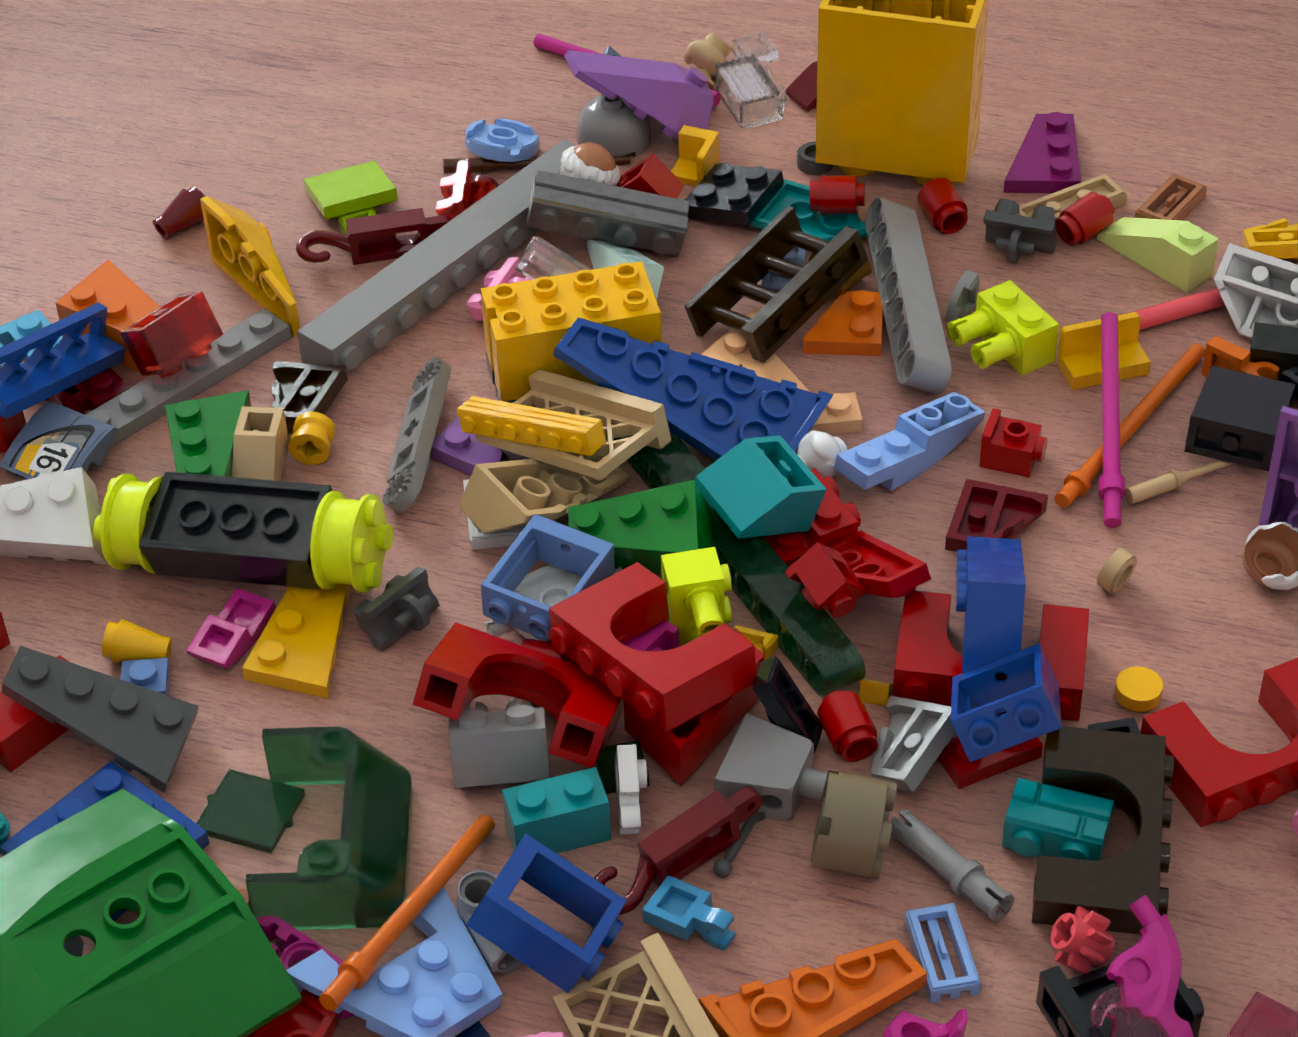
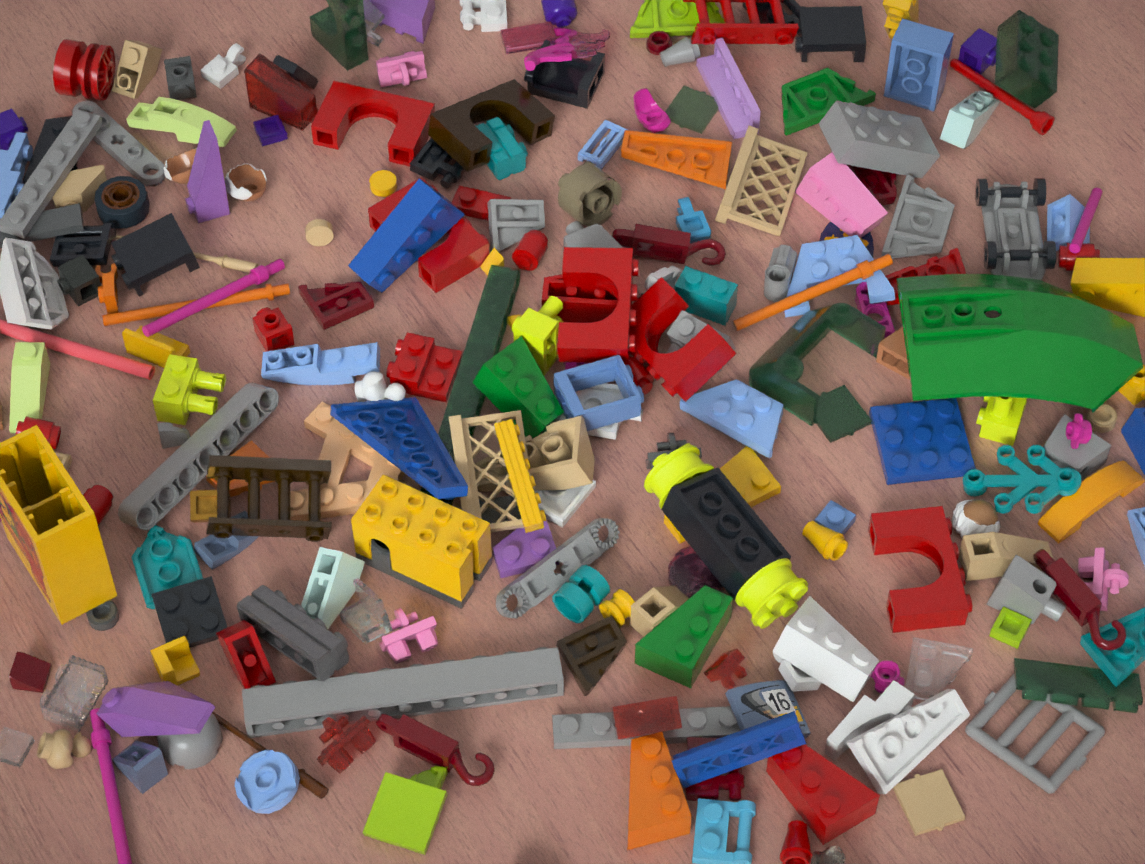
camera: 140 degrees left, 10 degrees up
(121, 718) = (877, 489): dark grey wing -> none
(142, 456) = (724, 666): none -> clear red tile
(235, 630) = (778, 512): dark pink slope -> none
(247, 256) = (525, 790): yellow wedge -> none
(363, 420) = (580, 595): none -> teal wheel
(368, 705) = (739, 413): none -> light blue wing
(532, 939) = (757, 258): blue window -> none
(591, 163) = (263, 675): hair -> none
(762, 488) = (444, 358): teal slope -> none
(785, 702) = (554, 260): black plate -> none
(827, 580) = (472, 292): red brick -> none
(836, 195) = (148, 546): red brick -> none
(880, 566) = (435, 304): red wing -> none
(964, 876) = (561, 158): light grey pin -> none
(1020, 233) = (87, 451): dark grey hips -> none
(1026, 694) = (452, 195): blue window -> none
(1082, 940) = (552, 98): coral gear -> none

